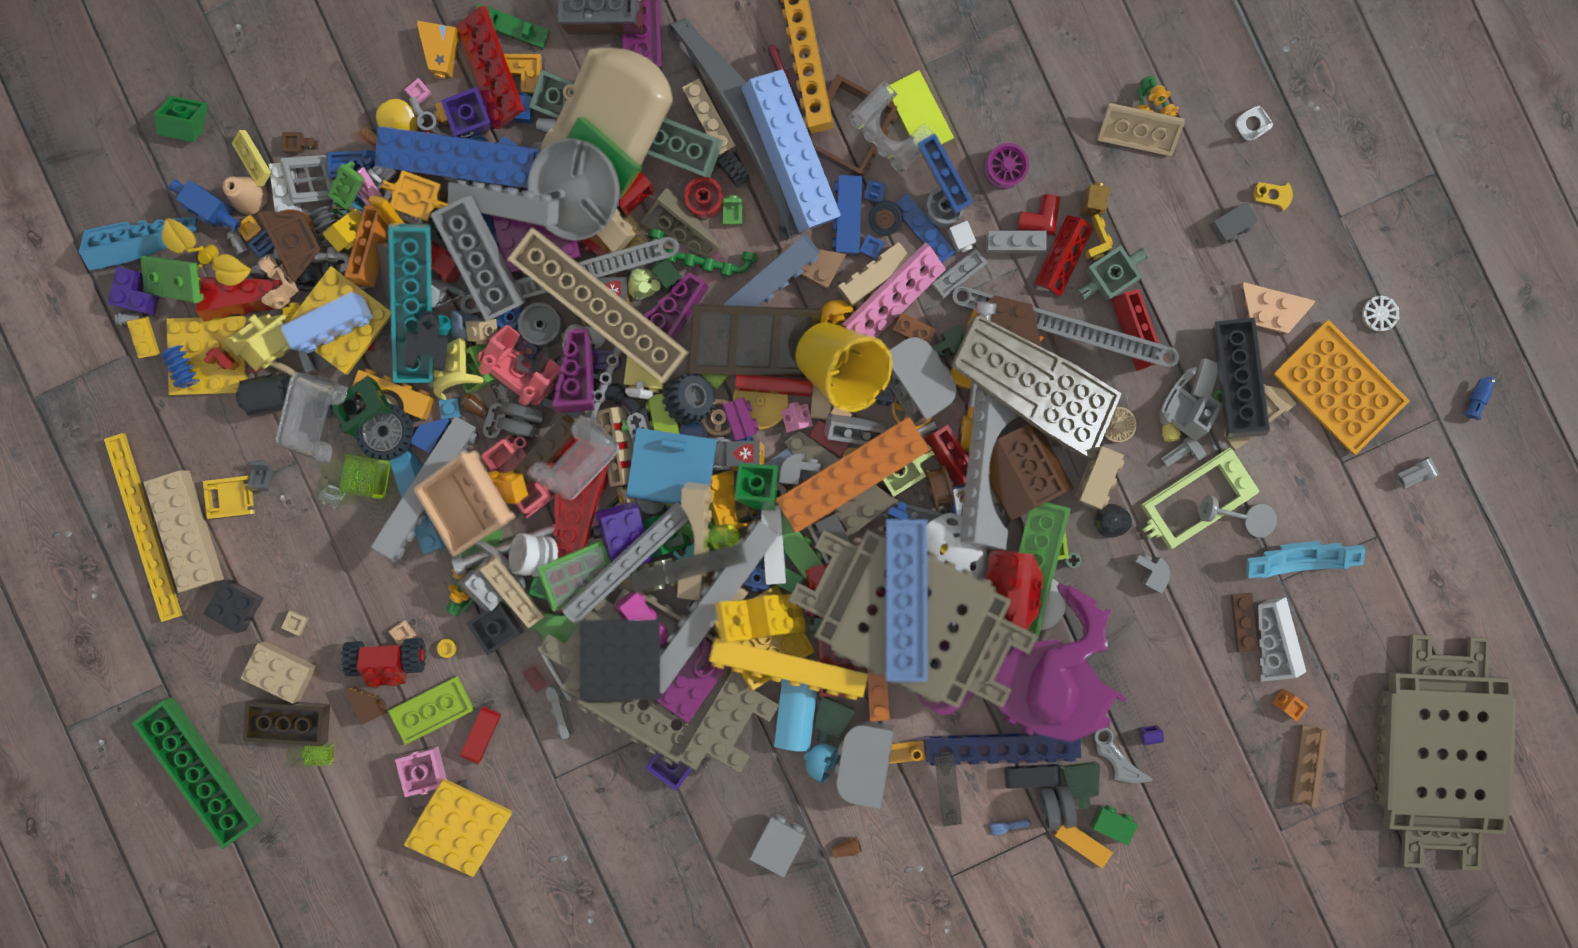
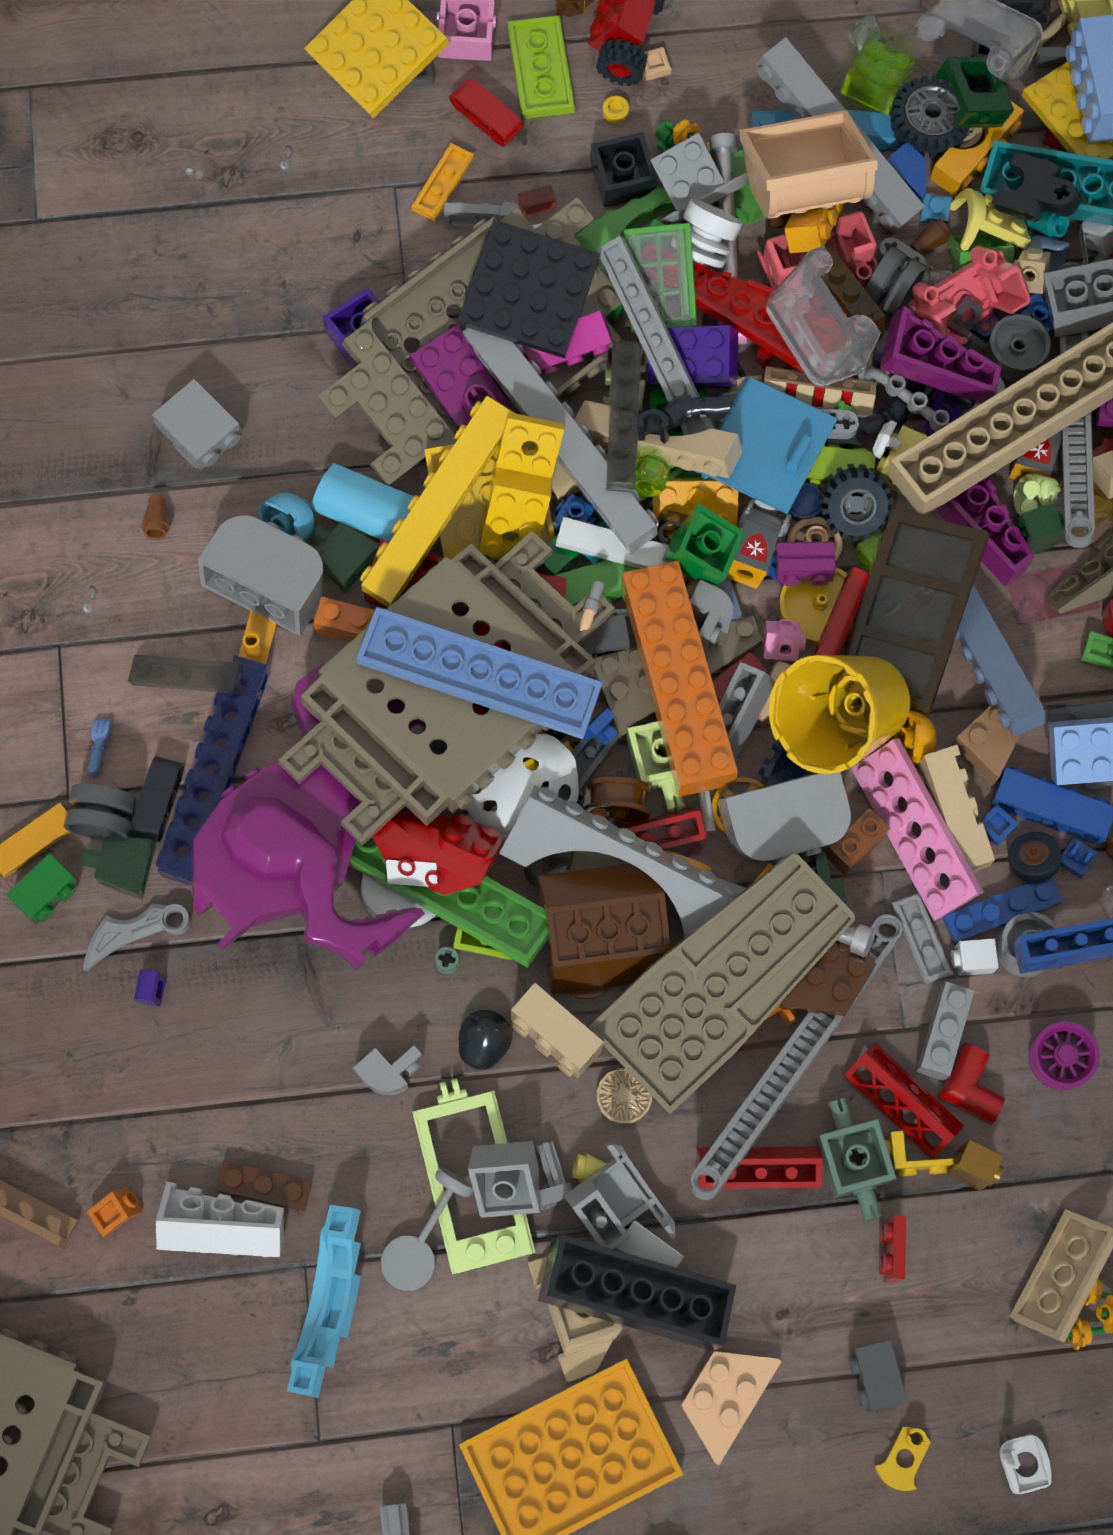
camera: 105 degrees right, 15 degrees down
(511, 591) = (666, 192): tan hinge -> none
(541, 746) = (443, 182): none -> light orange tile
(674, 532) = (678, 411): none -> black piece
(707, 263) = (1038, 591): green bar -> none
(830, 544) = (591, 605): none -> light grey piece
(1038, 594) = (415, 879): none -> white sticker
(1166, 234) = (893, 1237): none -> red plate
(1197, 479) = (505, 1179): none -> light grey slope

